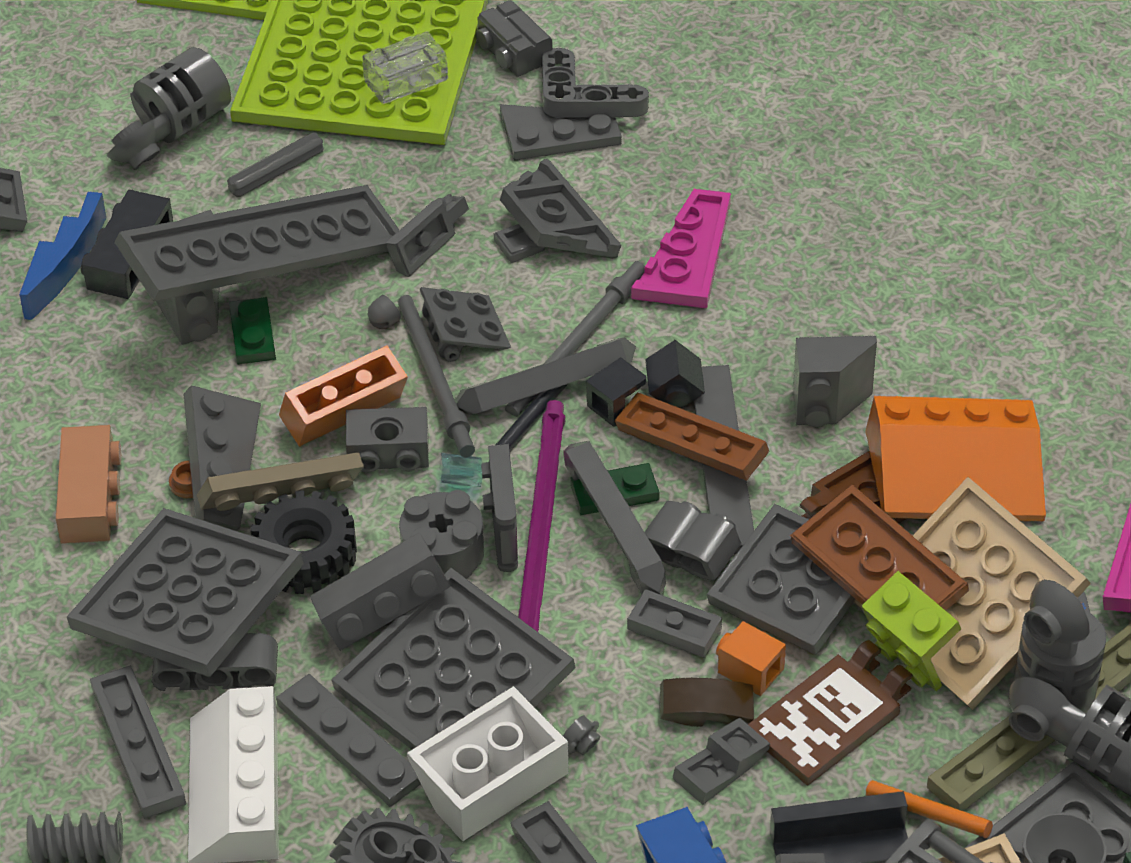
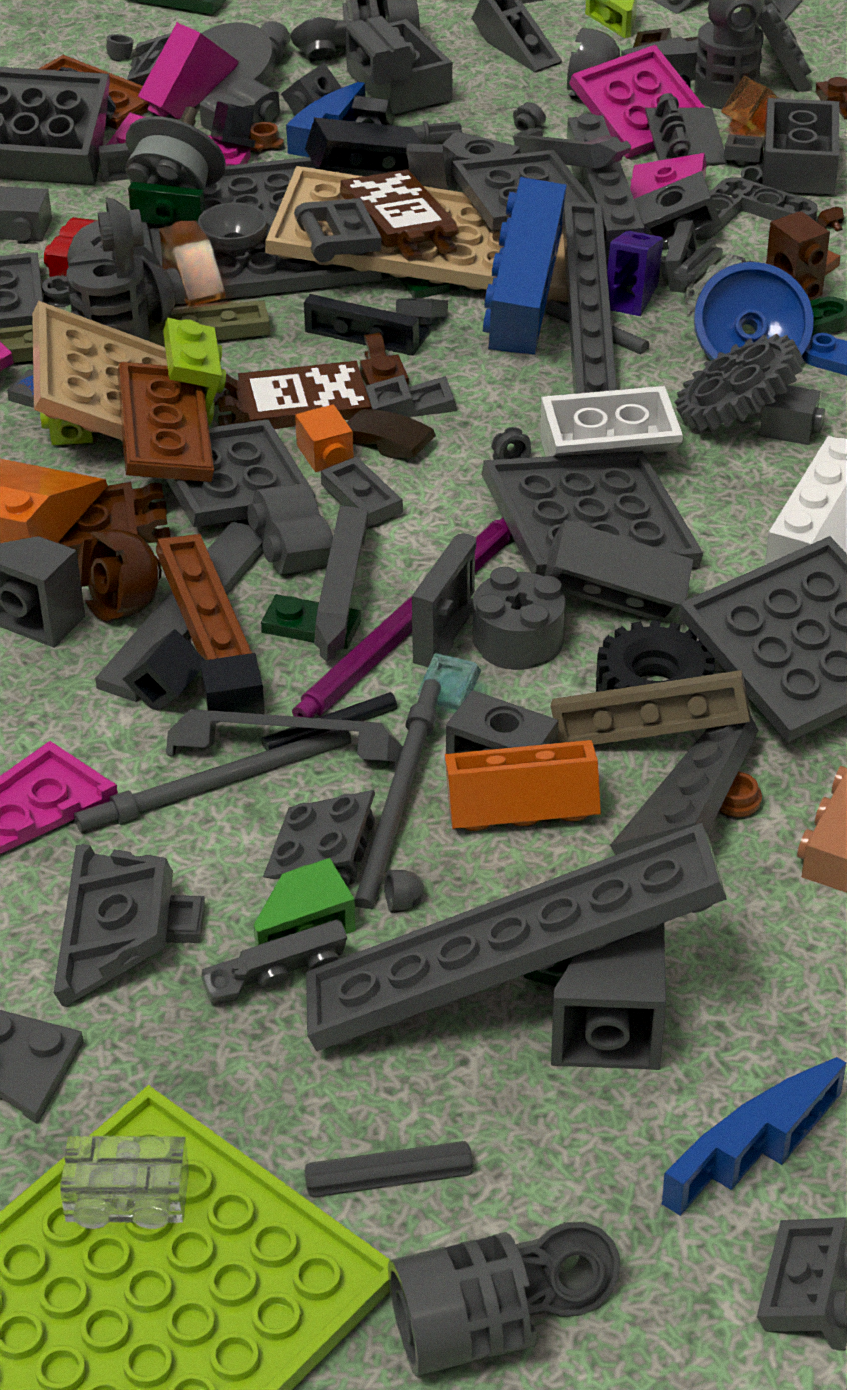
camera: 150 degrees left, 5 degrees down
(105, 266) = (659, 1112): black brick -> none
(349, 739) = (711, 521): dark grey plate -> none
(431, 263) = (305, 900): none -> bright green slope
(777, 784) = (377, 365): none -> reddish brown plate
(784, 425) = (119, 573): none -> reddish brown cylinder
(936, 811) = (288, 309): orange bar -> none
(1056, 781) = (190, 252): none -> clear orange slope

